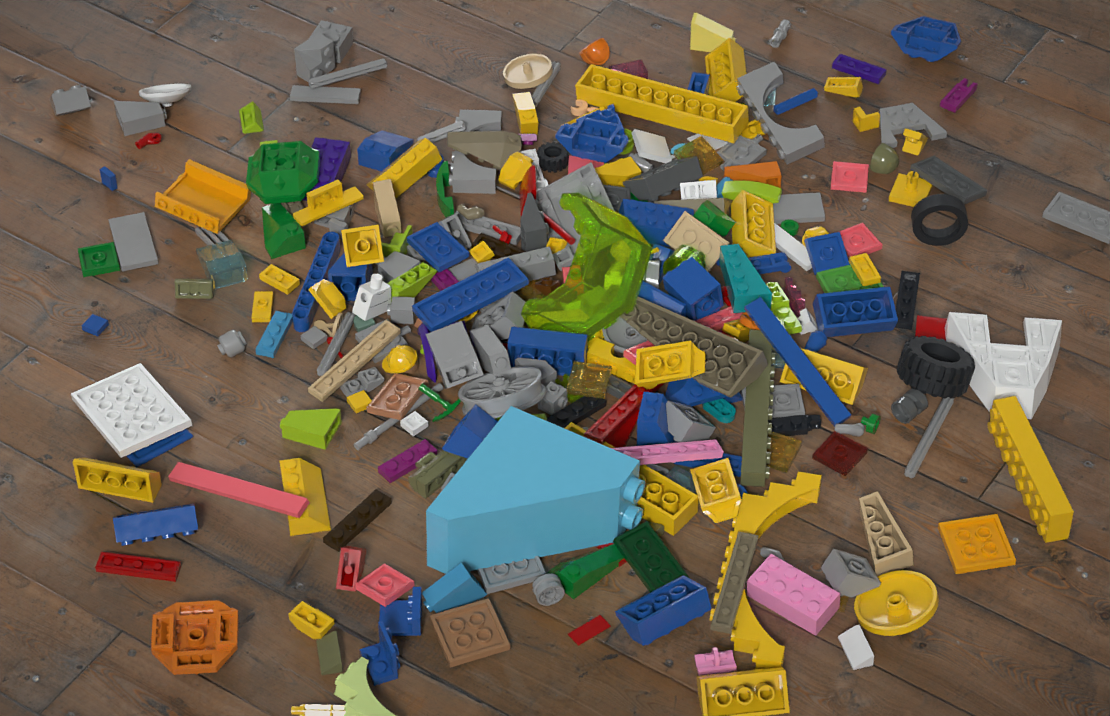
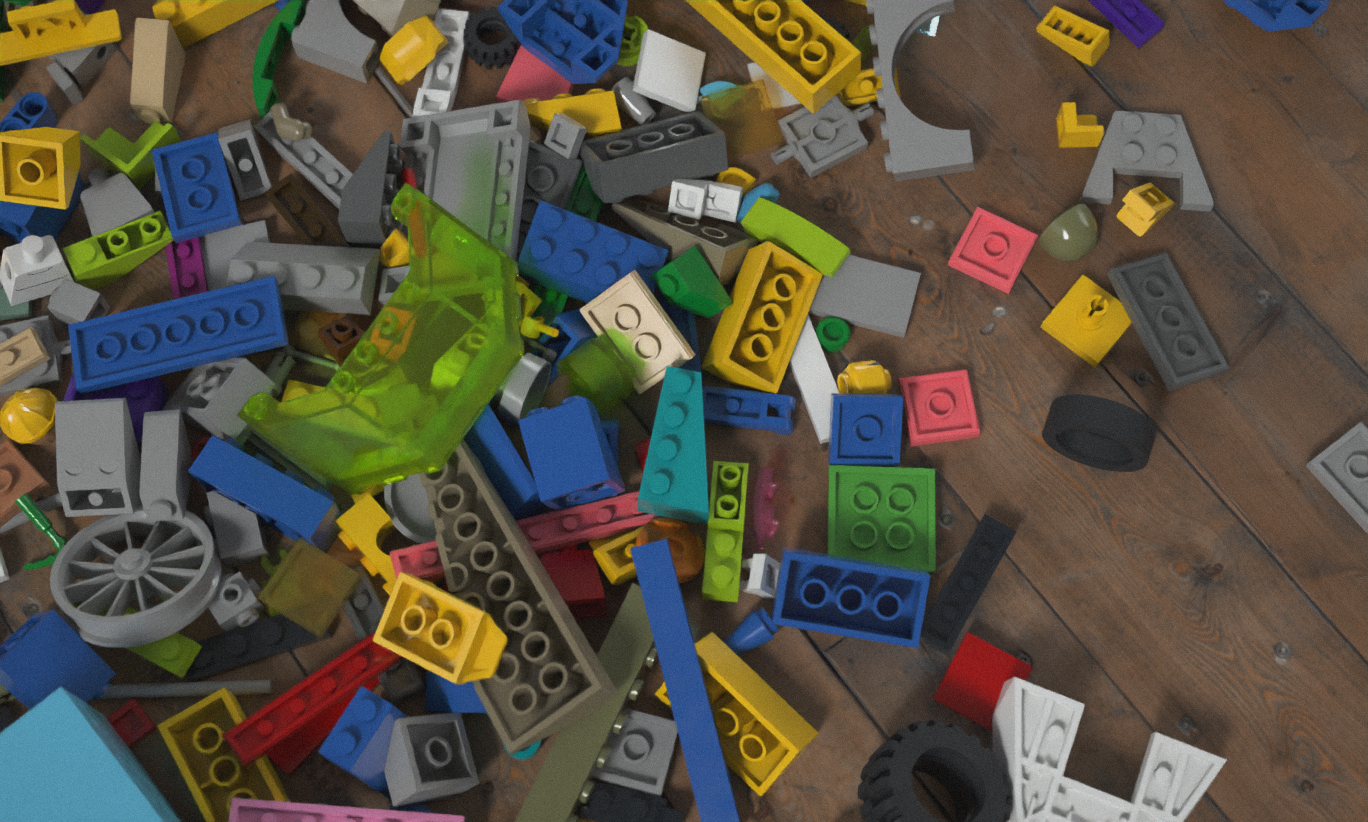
camera: 20 degrees right, 25 degrees up
(481, 252) = (268, 223): yellow tile -> none
(505, 237) = (324, 198): red hand -> none
(528, 185) = (409, 105): red slope -> none
(617, 177) = (565, 135): none -> light grey plate
(759, 172) = (827, 199): orange slope -> none
(795, 101) = (971, 43): blue axle -> none
(864, 269) = (913, 497): yellow plate -> none
(958, 95) = (1271, 125): magenta hinge -> none

